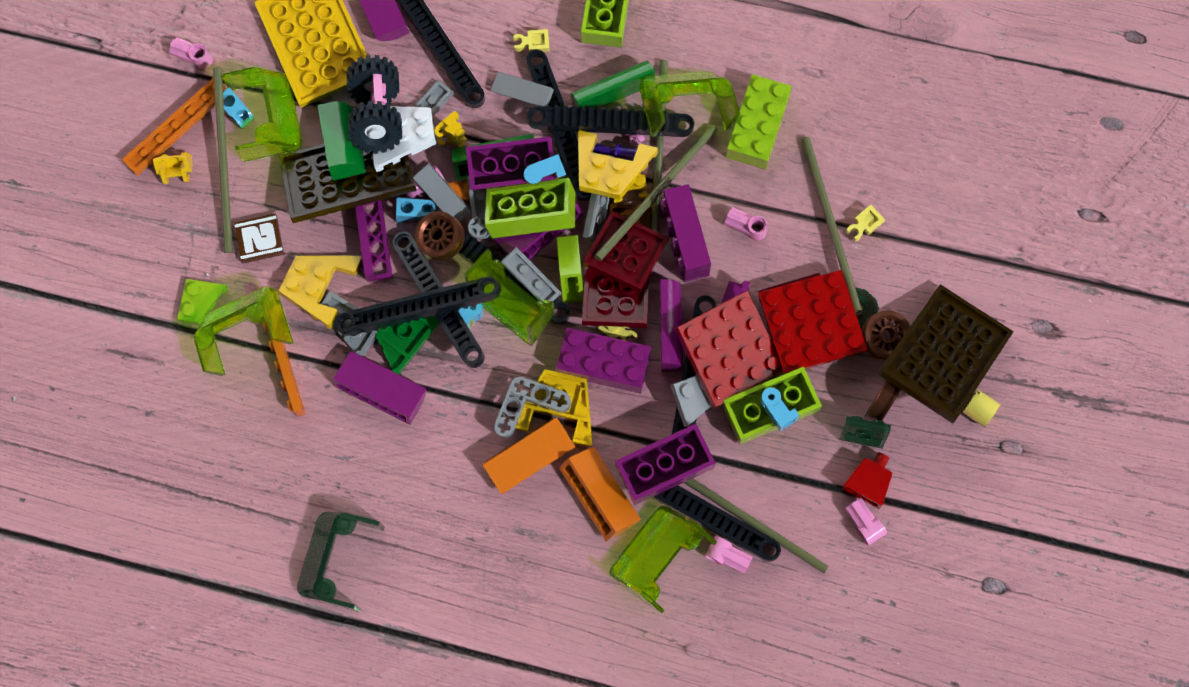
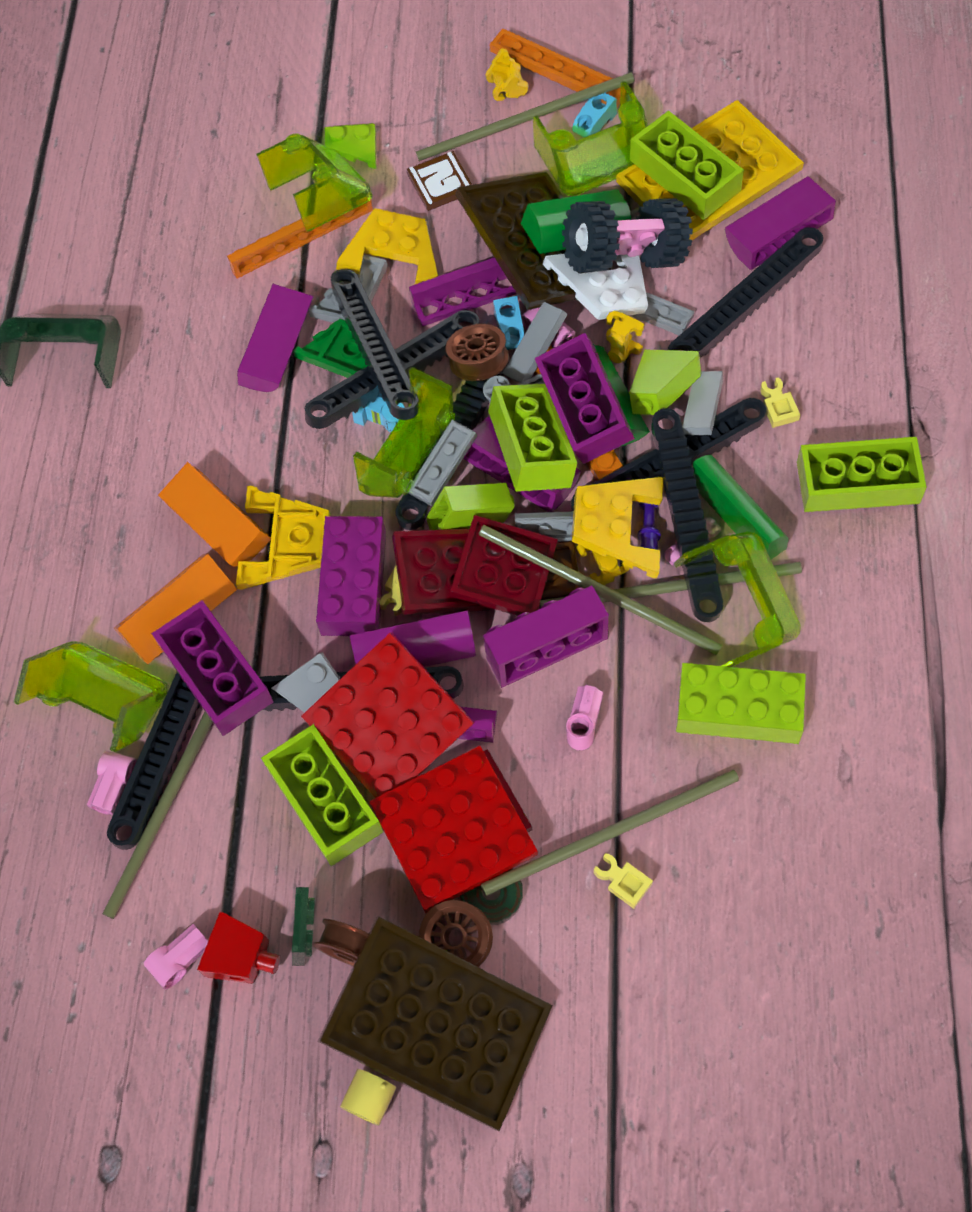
camera: 80 degrees right, 10 degrees down
(190, 52) = (653, 59): bright pink piece -> none
(315, 49) = (686, 164): none -> lime brick
(497, 112) = (662, 379): none -> lime slope
(521, 398) = (283, 490): light grey beam -> none
(534, 173) = (573, 422): medium azure leg -> none
(777, 410) = (305, 791): medium azure leg -> none

